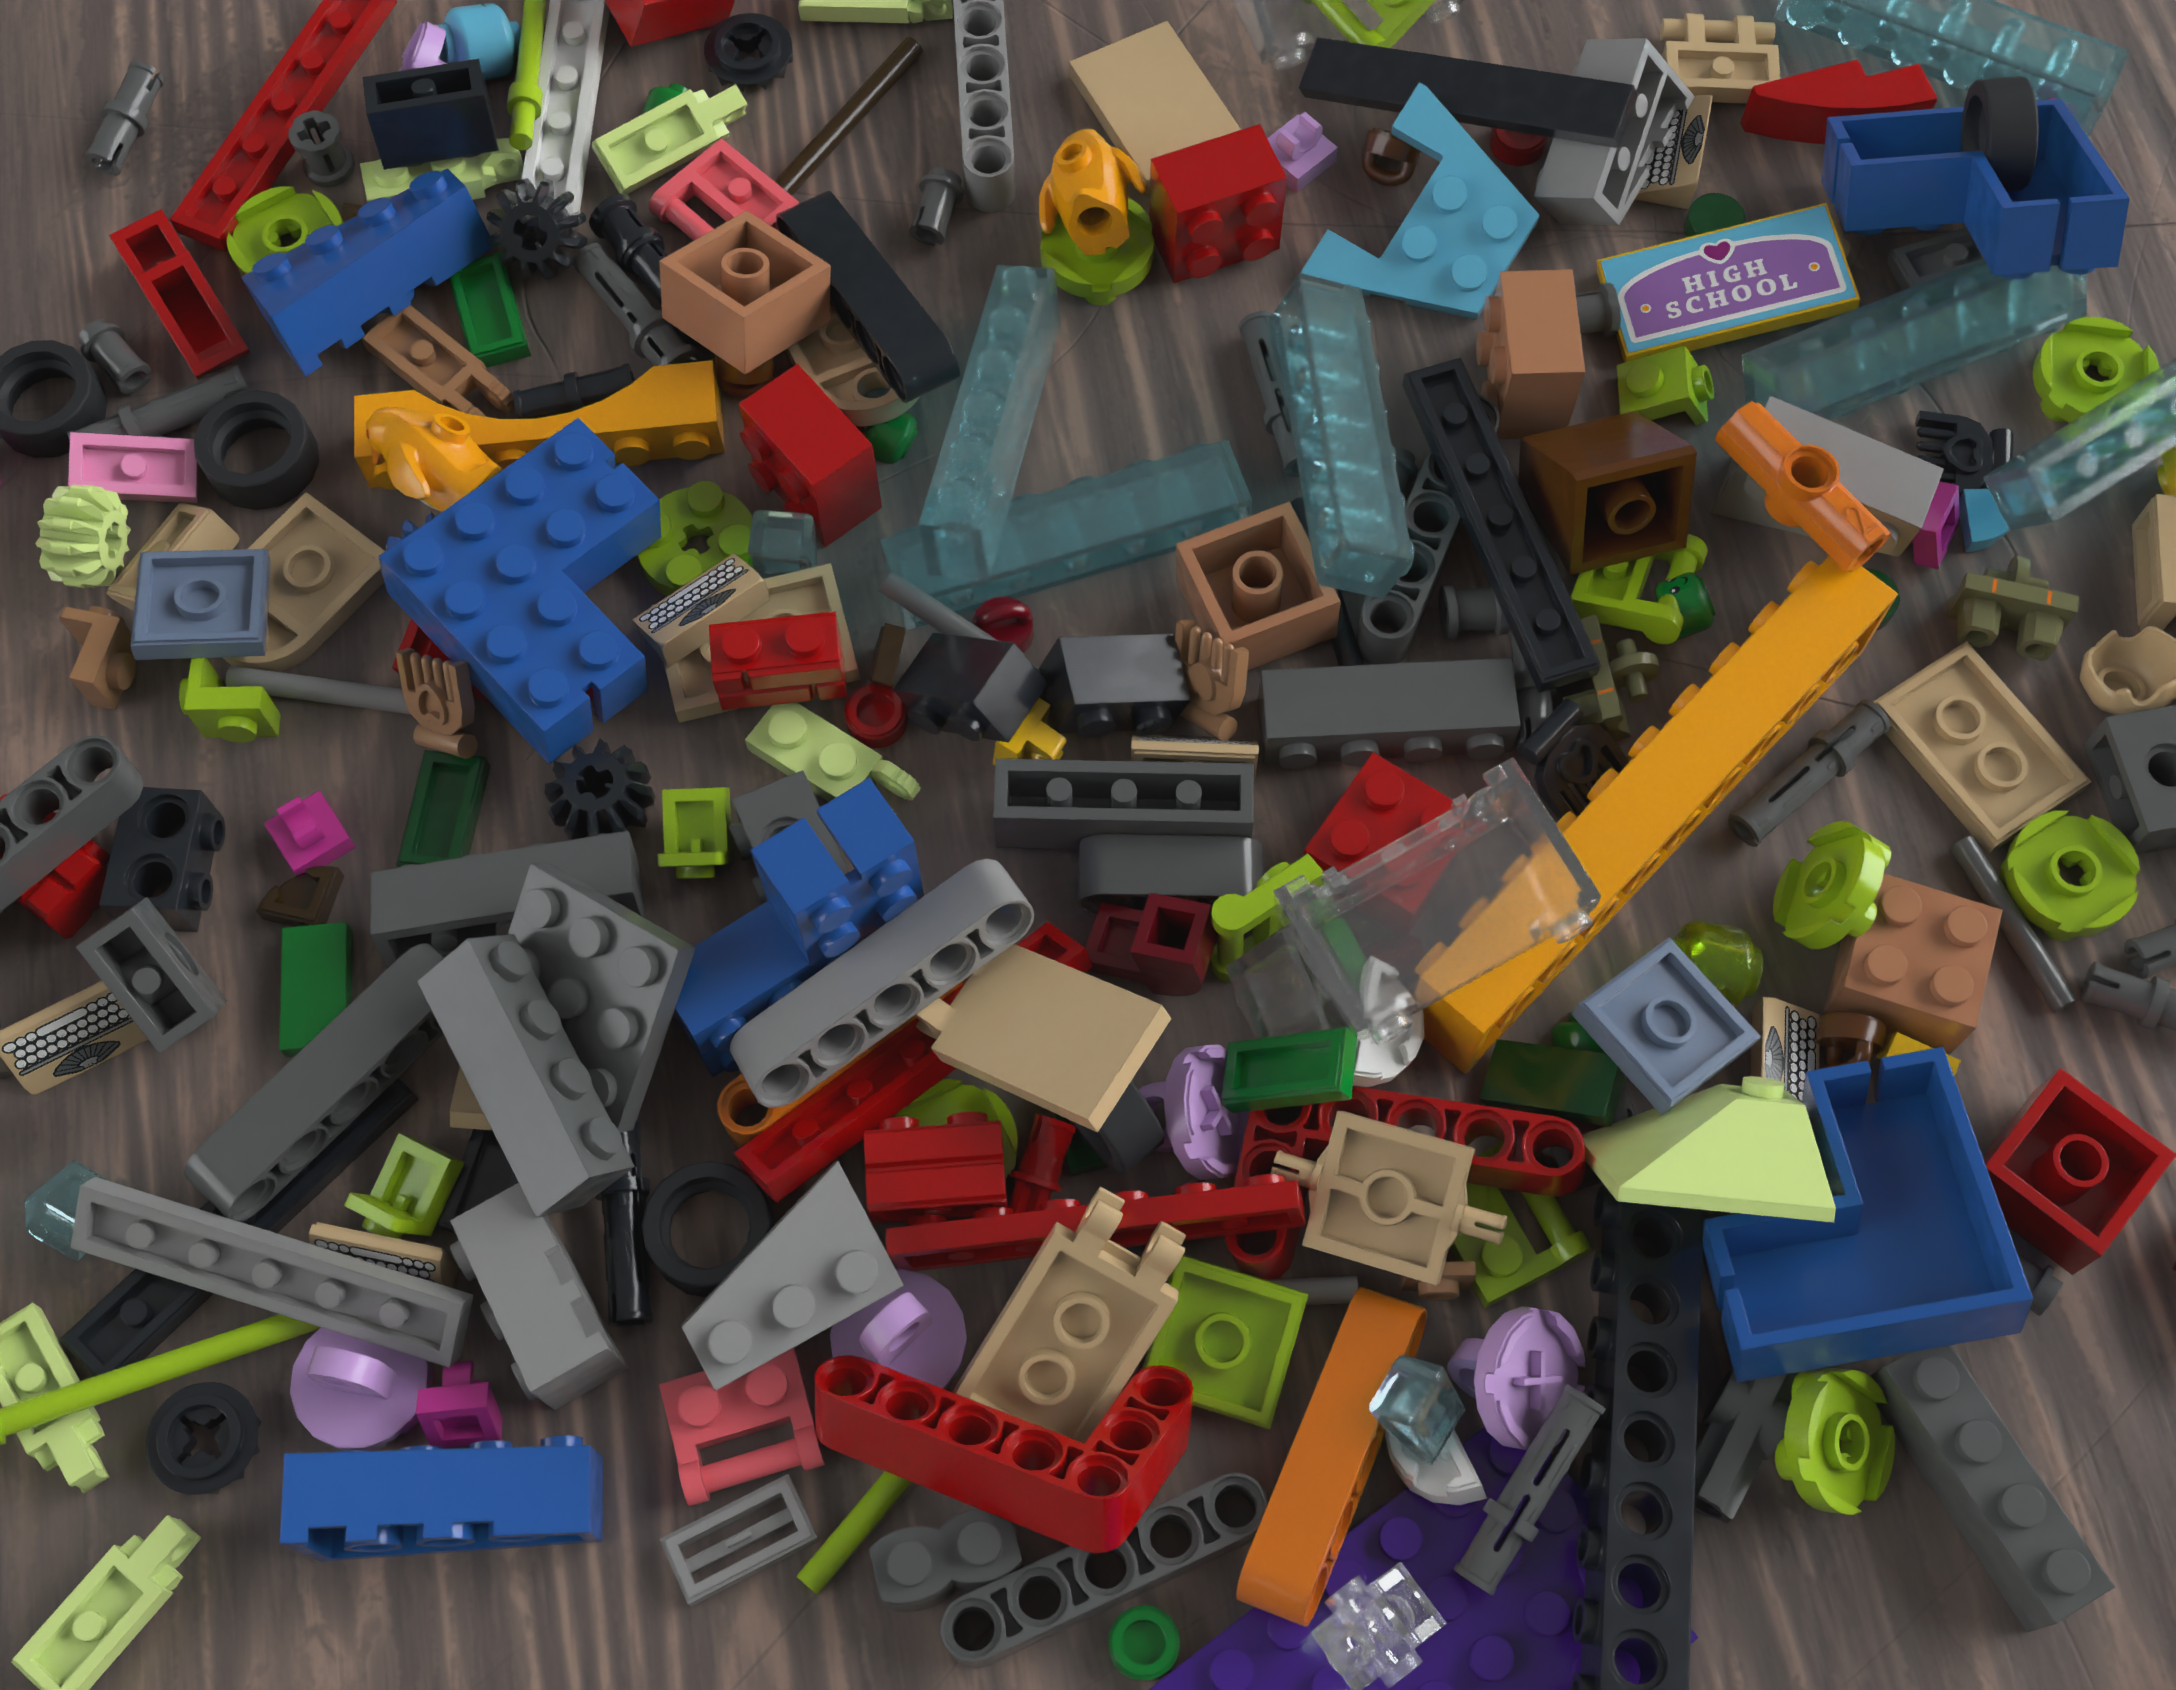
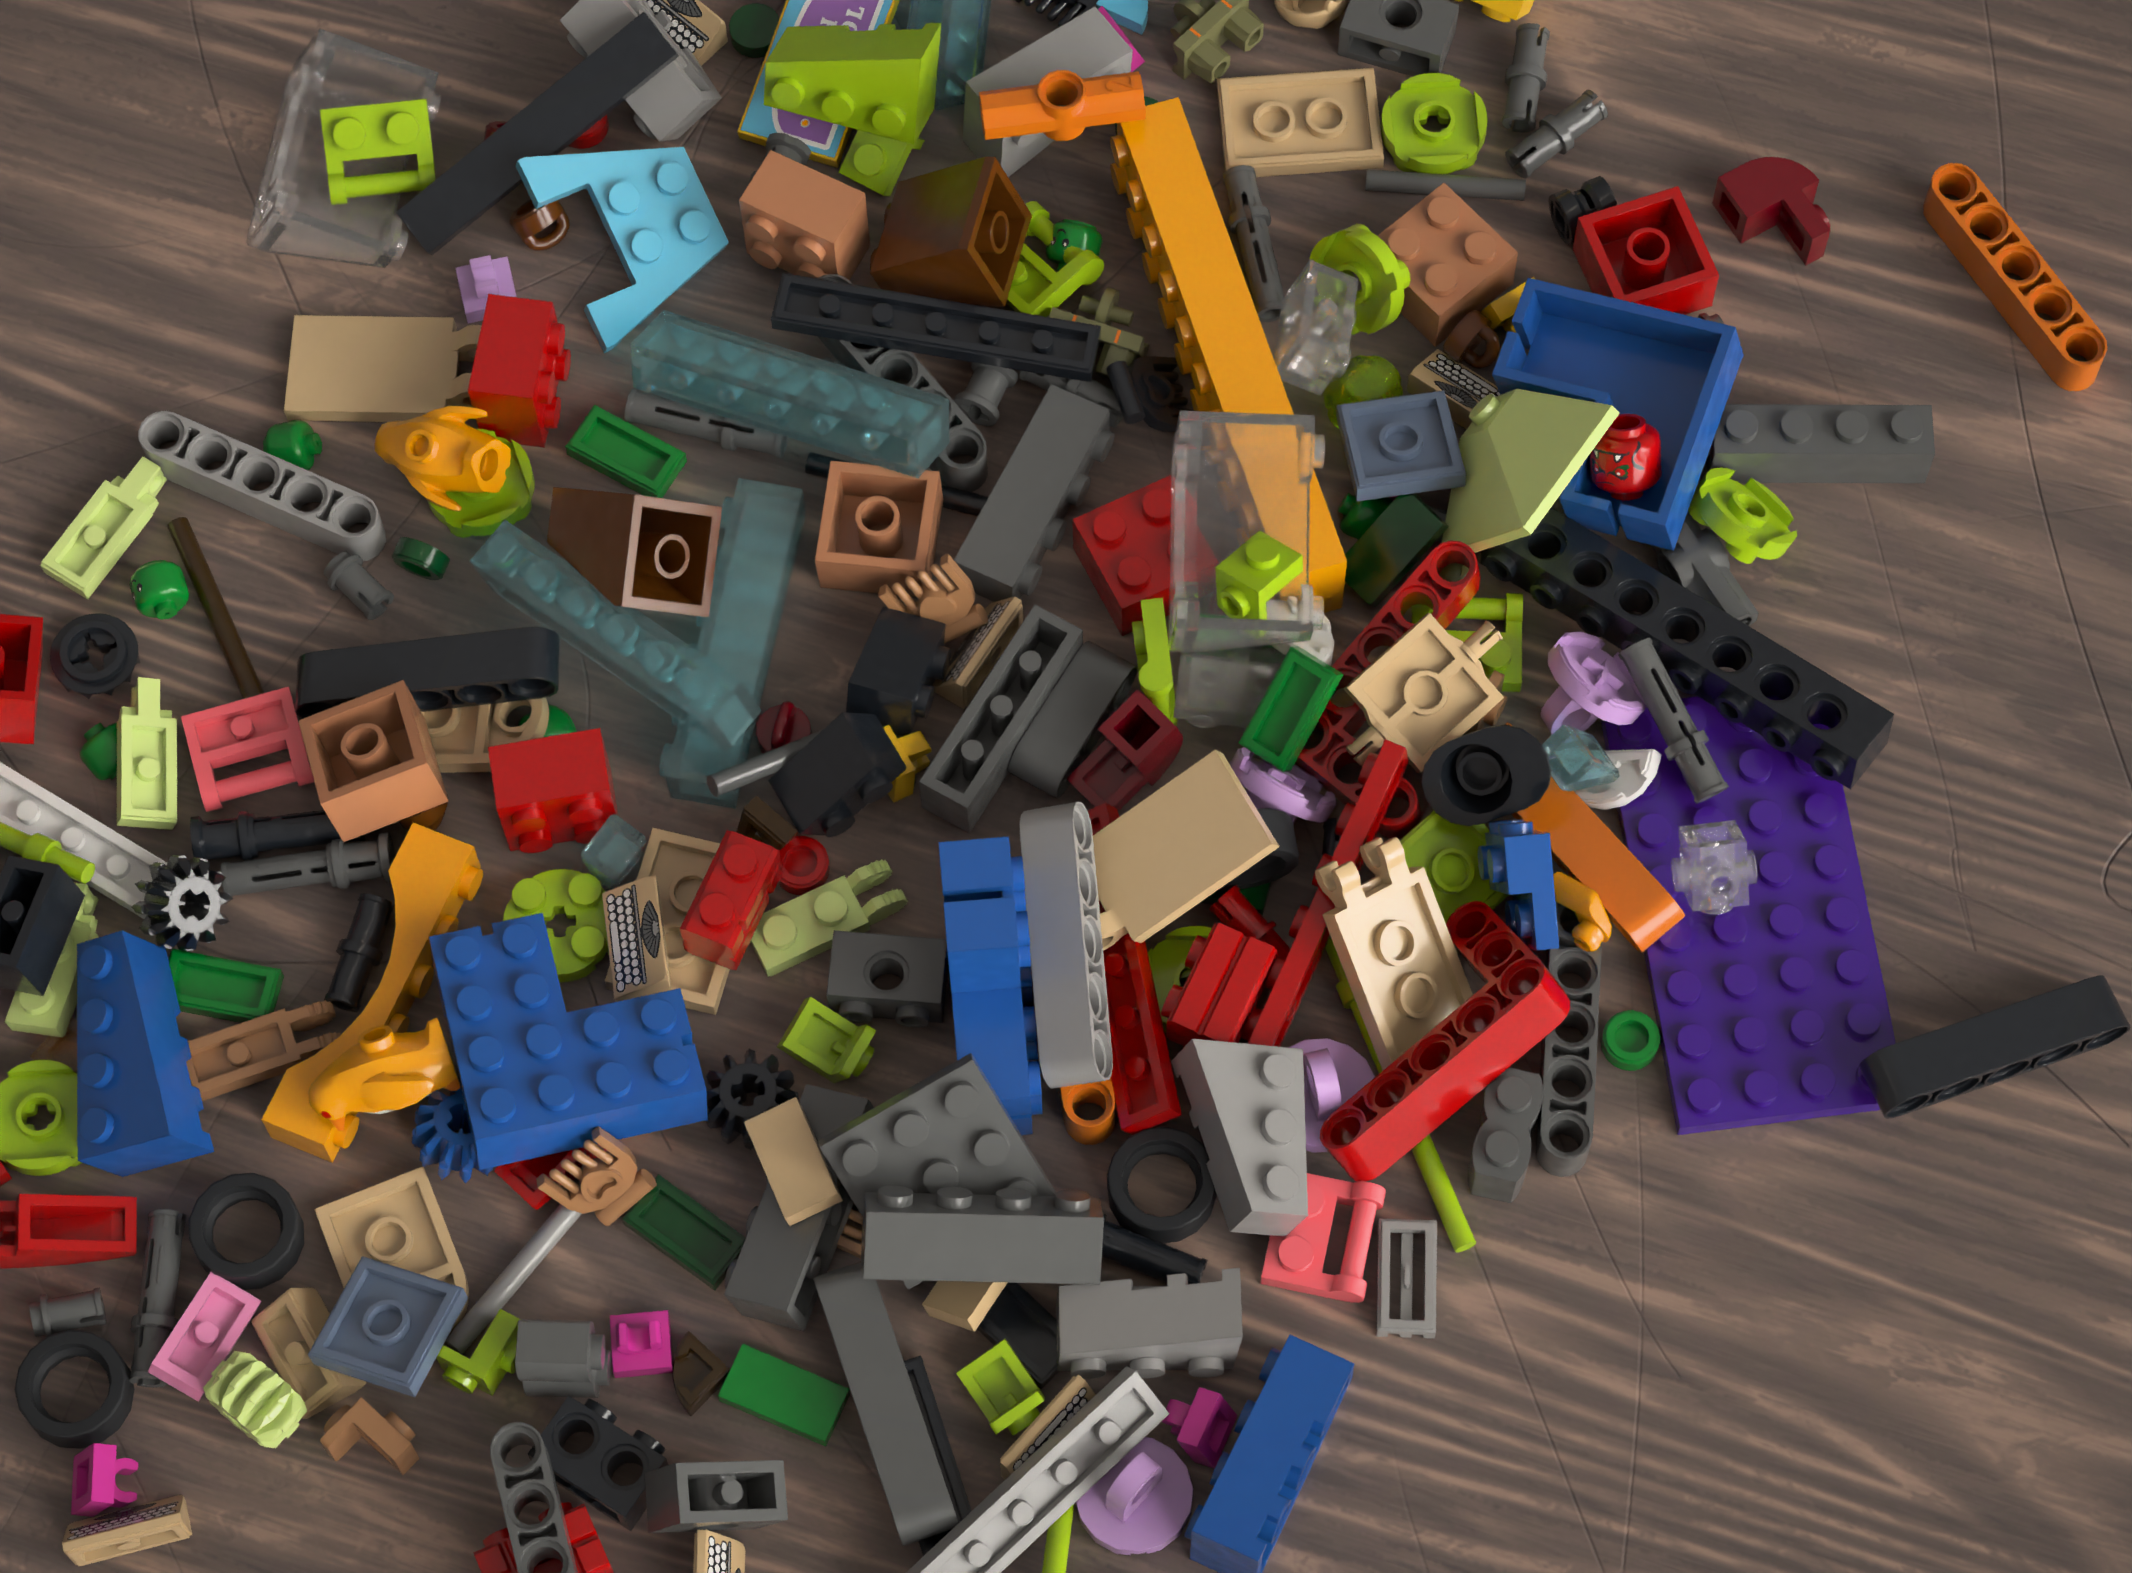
camera: 60 degrees left, 0 degrees up
(233, 761) = (561, 1358): none -> dark grey brick
(545, 834) = (793, 1161): none -> tan tile
(835, 60) = (159, 589): none -> green piece
(990, 238) = (420, 558): none -> dark green tile
(1044, 90) = (293, 442): none -> green piece
(1086, 388) = (639, 547): none -> reddish brown slope
(1207, 348) = (626, 453): none -> green tile
(1239, 1409) = (1520, 865): none -> blue plate
(1246, 1507) = (1588, 908): none -> light orange arm
(1326, 1312) = (1486, 775): none -> black piece
(1397, 945) = (1254, 576): none -> lime bracket
(1711, 310) = (857, 79): none -> lime wedge
(1744, 870) = (1316, 327): none -> clear brick
(1802, 1265) = (1627, 458): none -> red head
(2078, 1058) = (1568, 206): none -> black wheel

